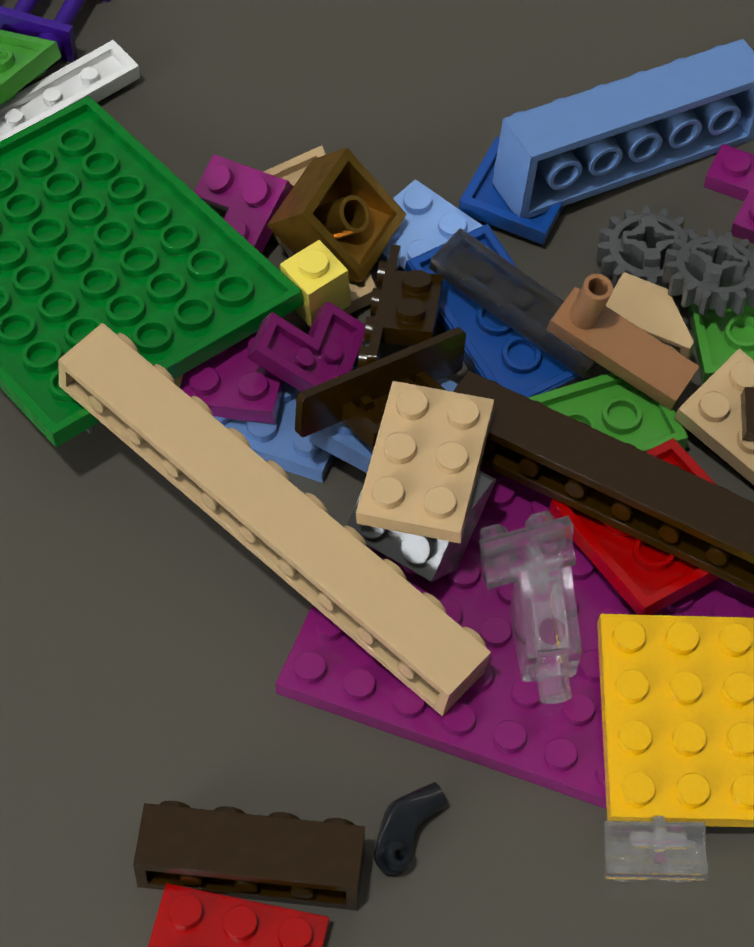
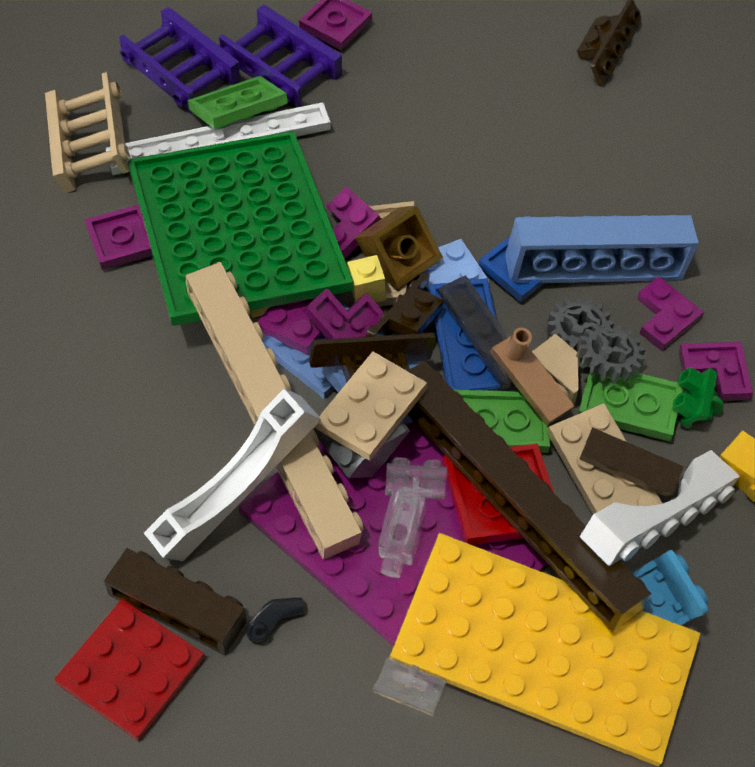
camera: 20 degrees right, 0 degrees up
(234, 709) = (276, 433): none -> white arch

